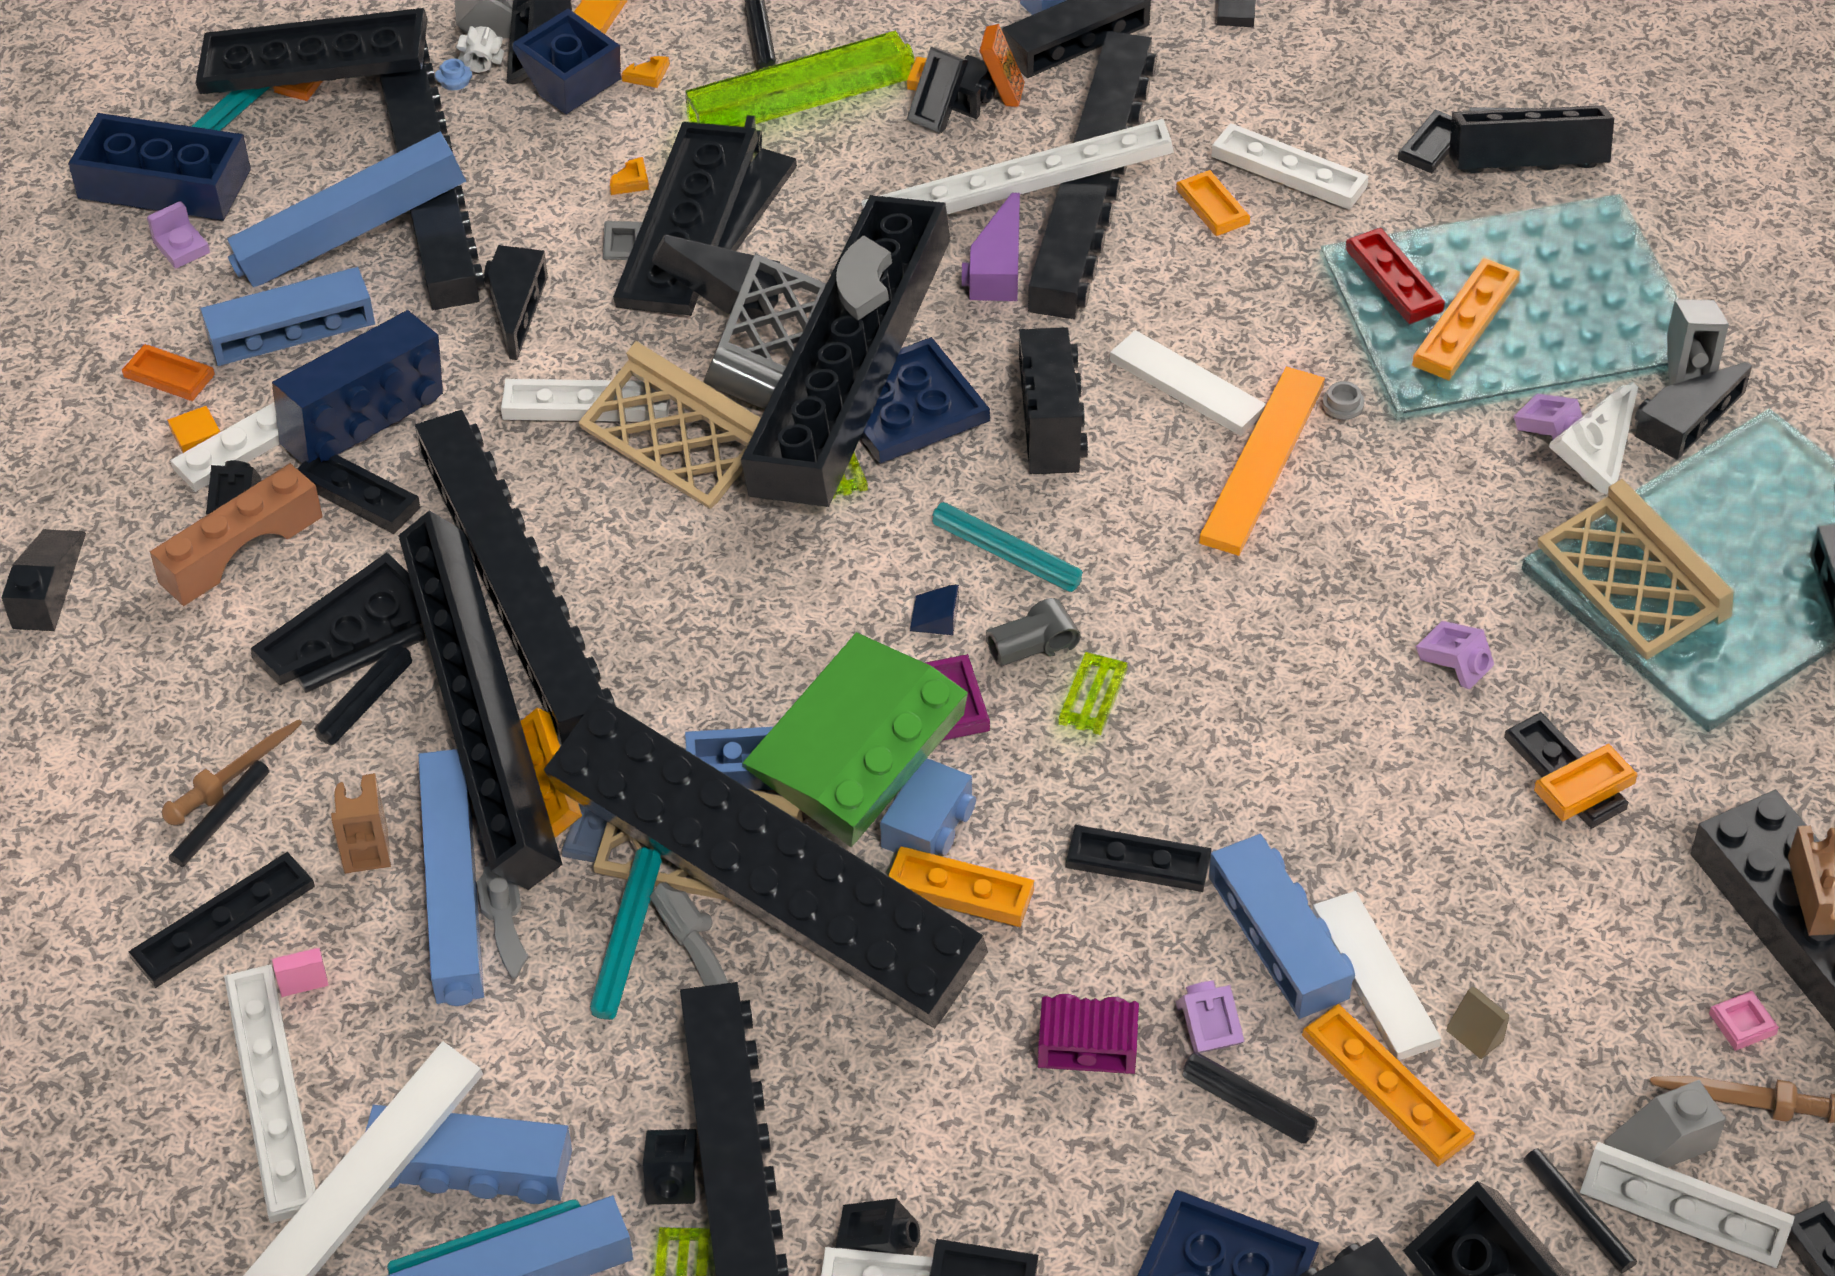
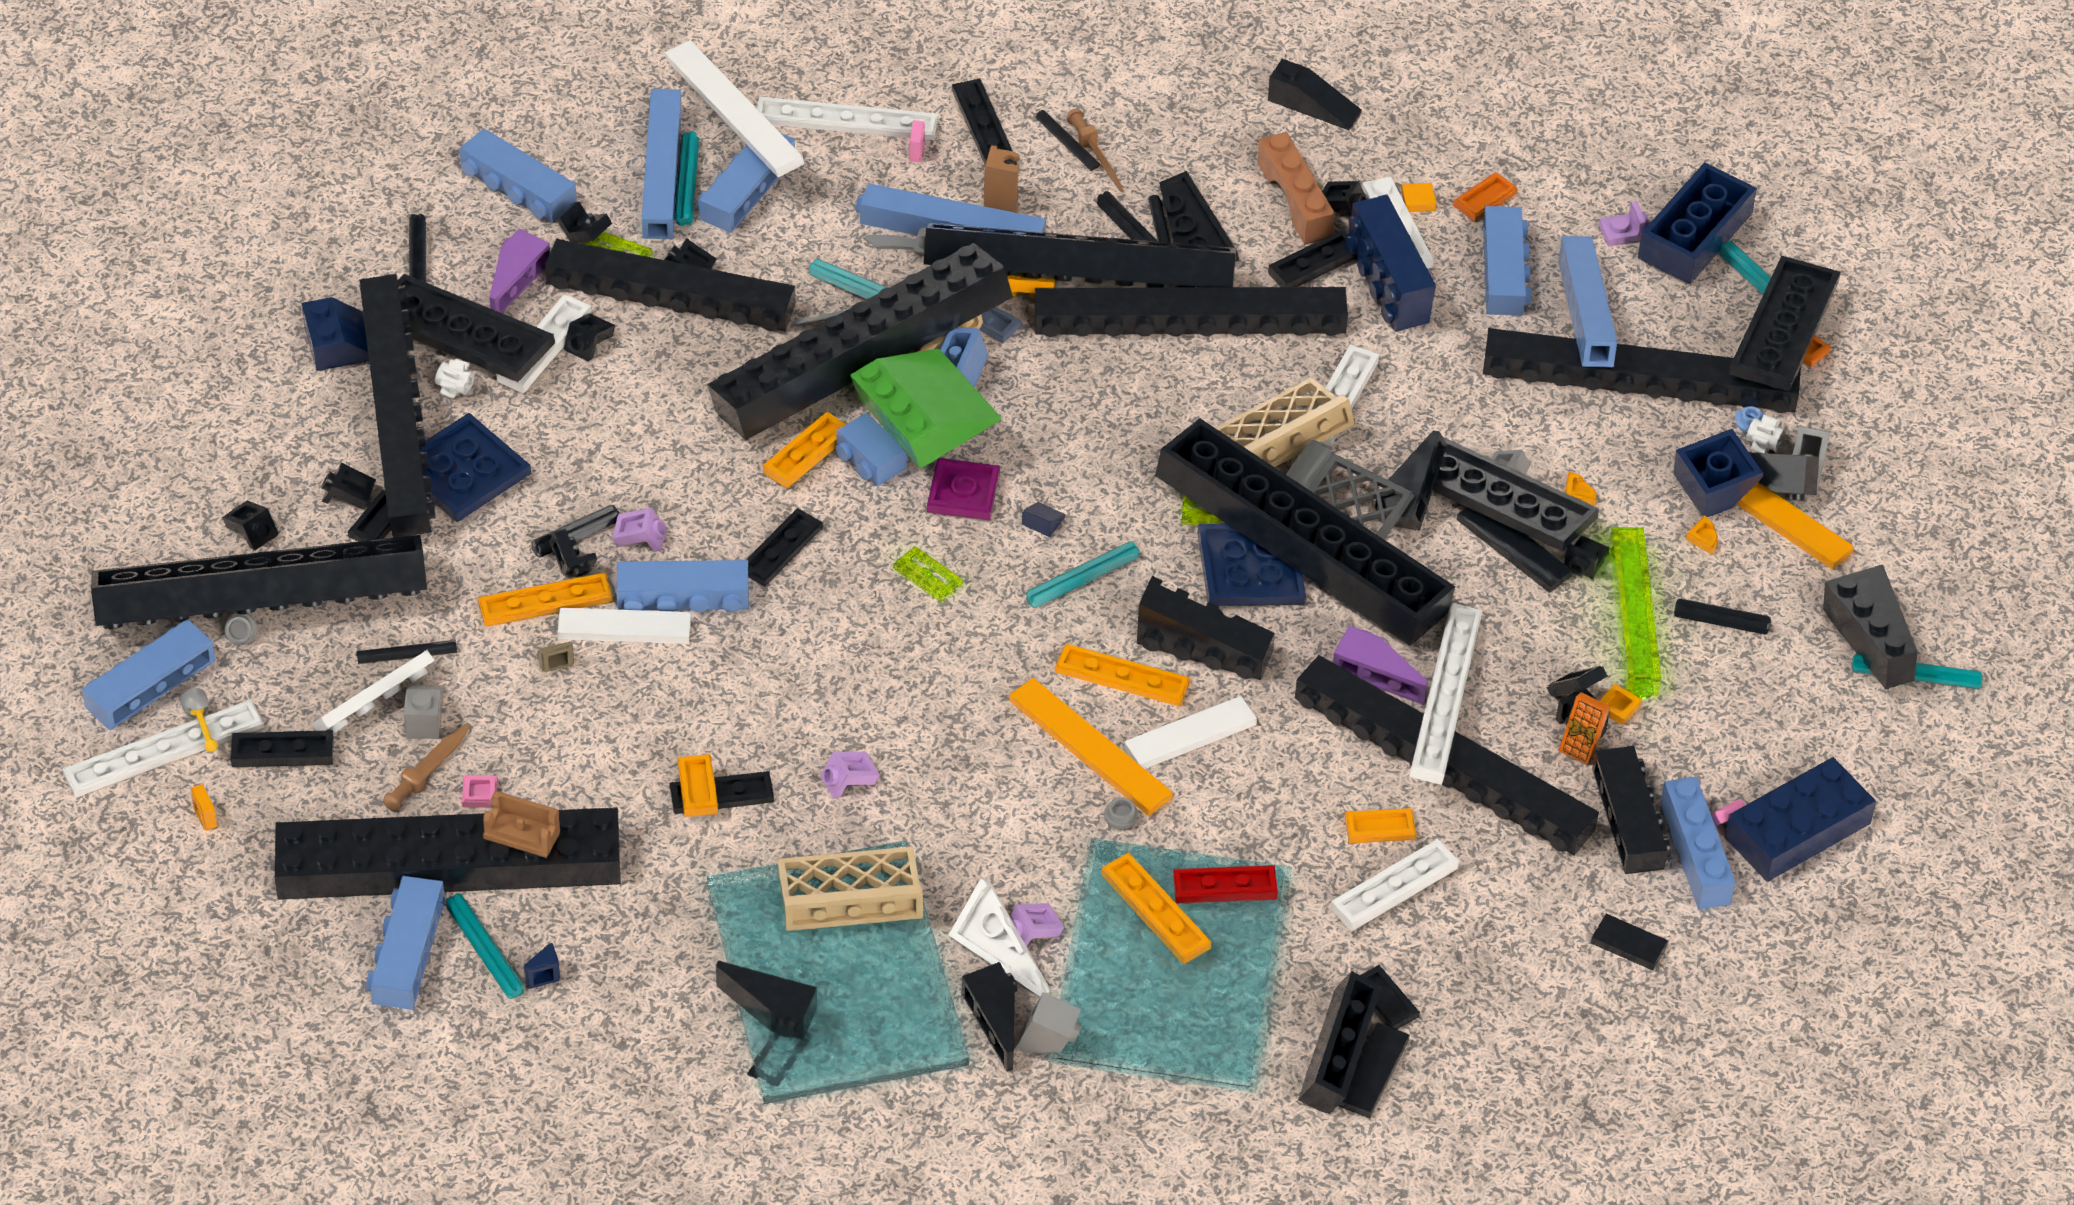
camera: 110 degrees right, 0 degrees up
(516, 287) = (1465, 381): black slope -> none
(860, 275) = (1350, 535): light grey tile -> none
(1043, 629) = (991, 559): dark grey piece -> none
(1088, 1034) = (660, 468): magenta brick -> none
(1138, 466) = (1122, 674): none -> light orange tile
(1310, 1067) = (566, 552): none -> black bracket

